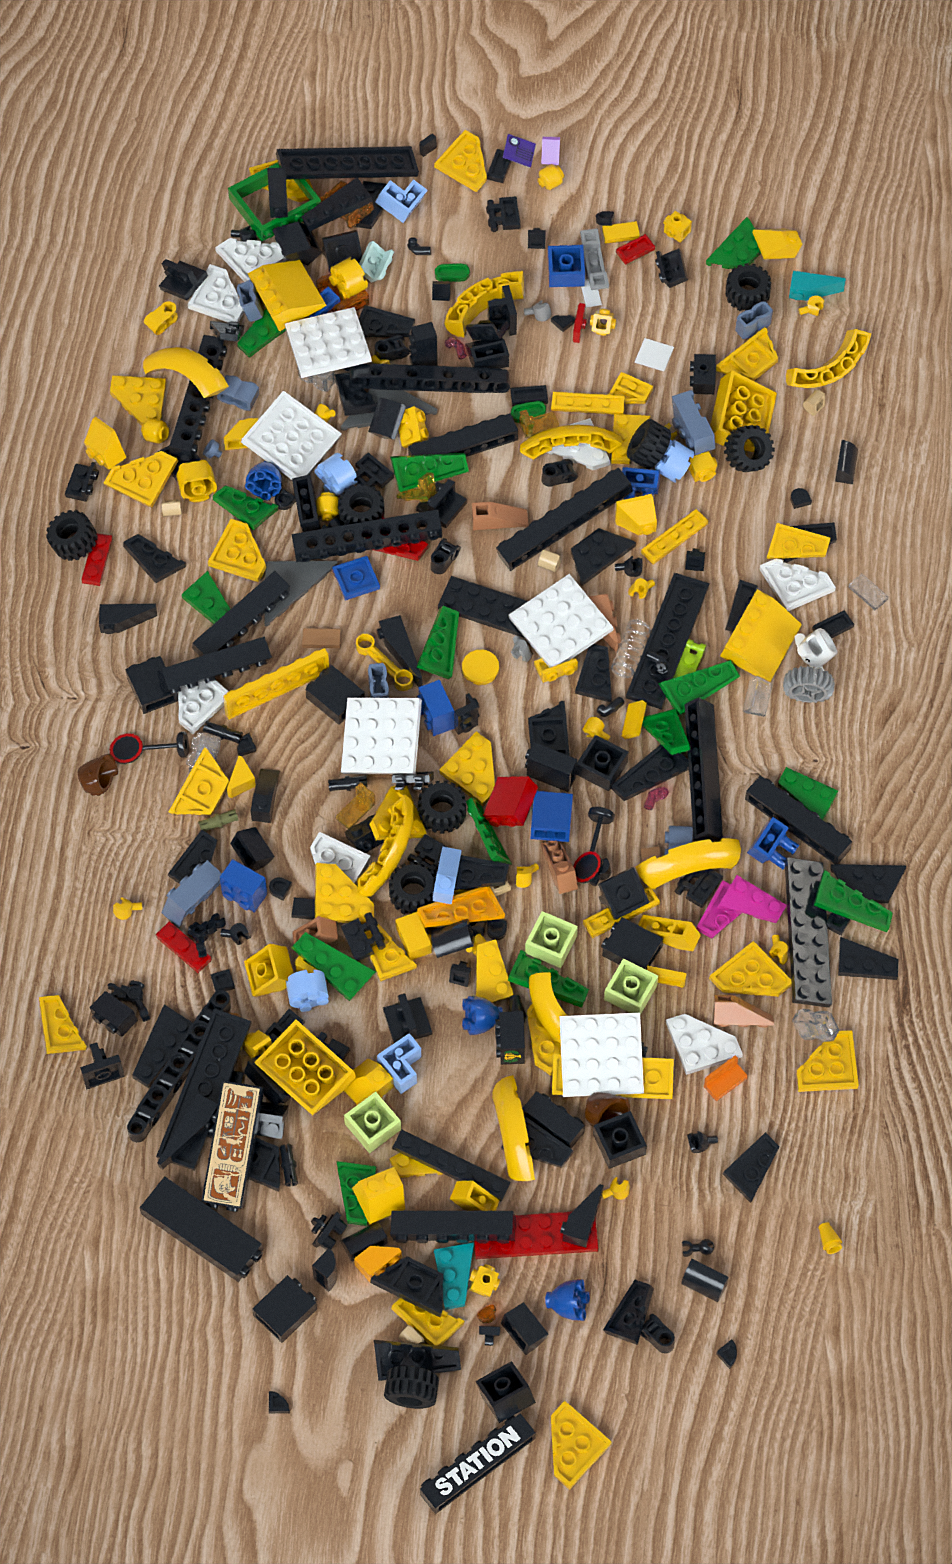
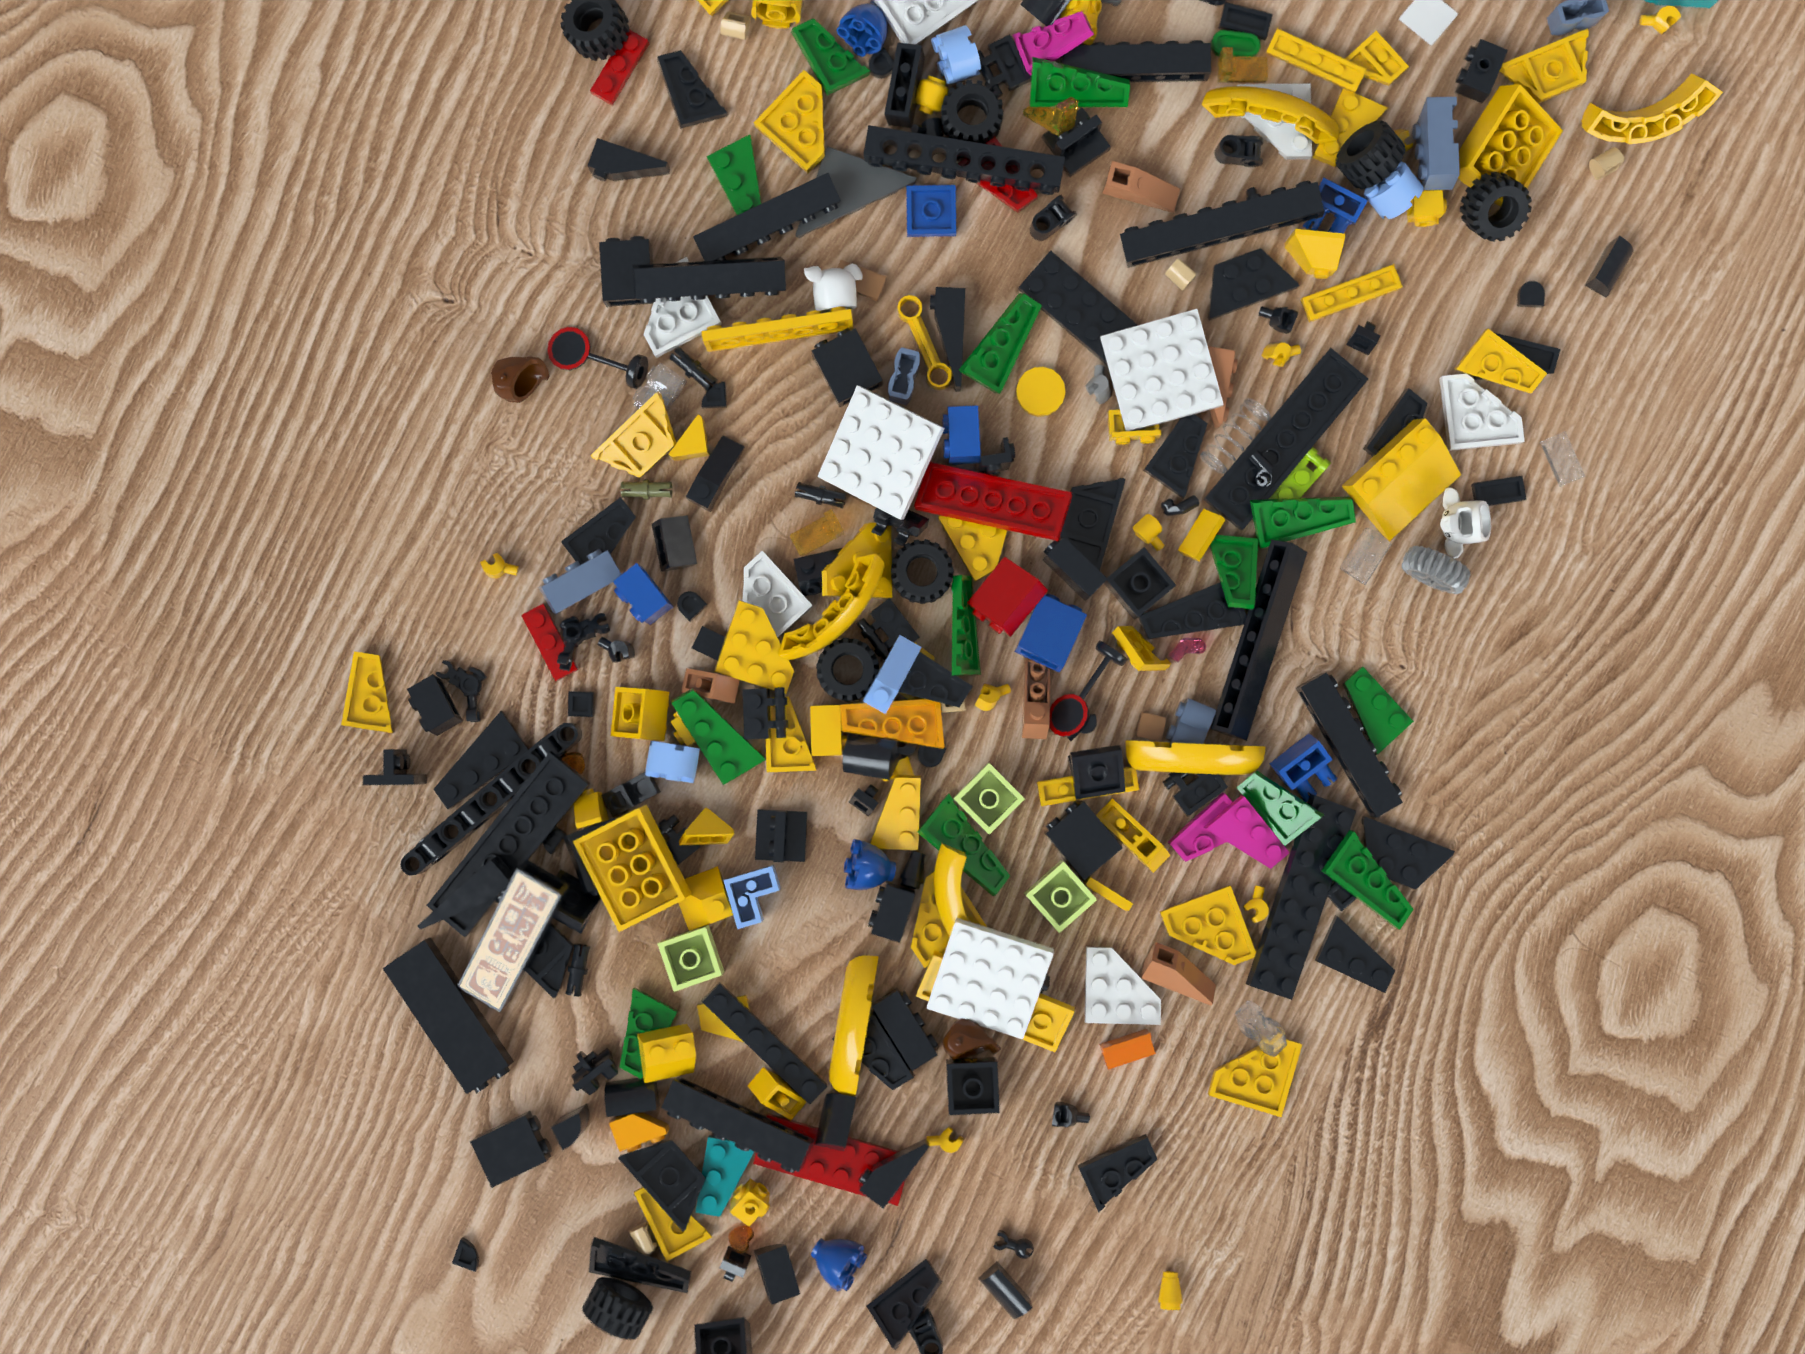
camera: 15 degrees right, 25 degrees up
(305, 641) = (834, 286): none -> white piece
(351, 1031) = (707, 830): none -> yellow slope
(400, 444) = (1053, 40): none -> dark pink wing
(474, 741) = (993, 501): none -> red plate
(526, 1200) = (835, 1121): none -> black brick
(623, 809) = (1139, 650): none -> yellow wing
(767, 876) = (1278, 807): none -> wing

